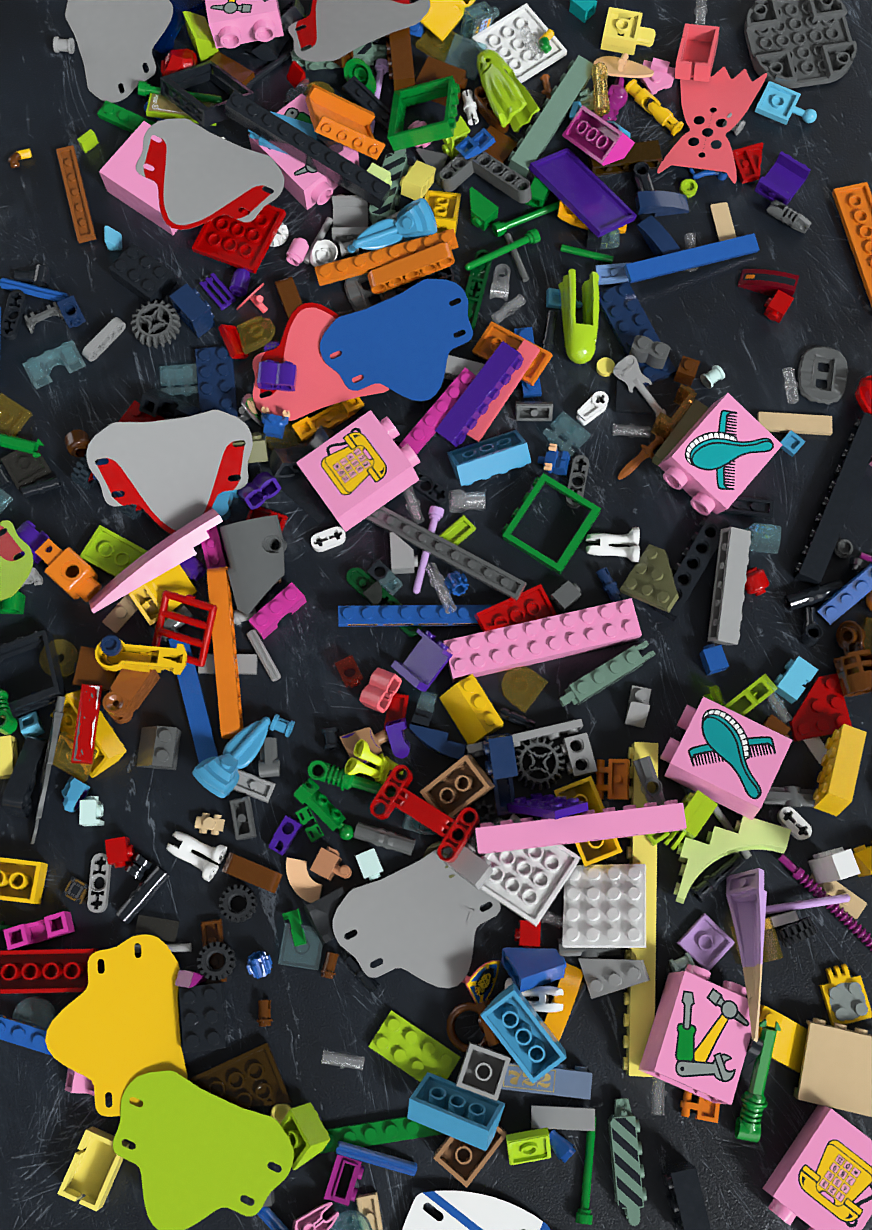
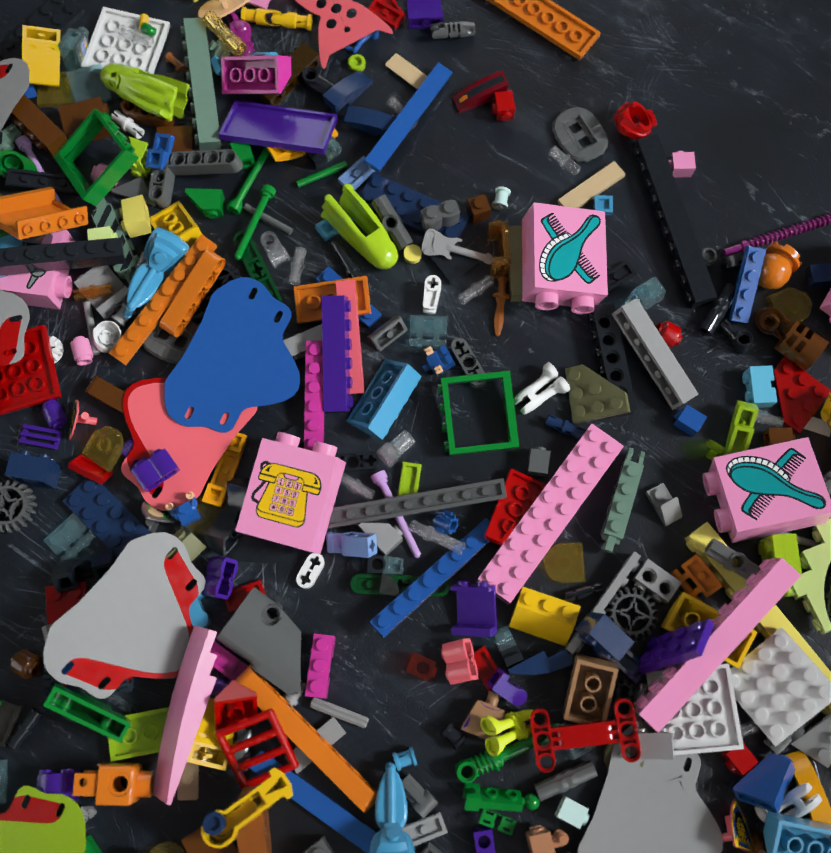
camera: 40 degrees left, 0 degrees up
(90, 505) = (88, 712): none -> green brick
(194, 581) = (234, 703): none -> red slope
(340, 214) = (93, 291): none -> clear orange pin
(374, 542) = (352, 544): none -> medium blue piece
(609, 319) = (386, 212): none -> dark grey piece

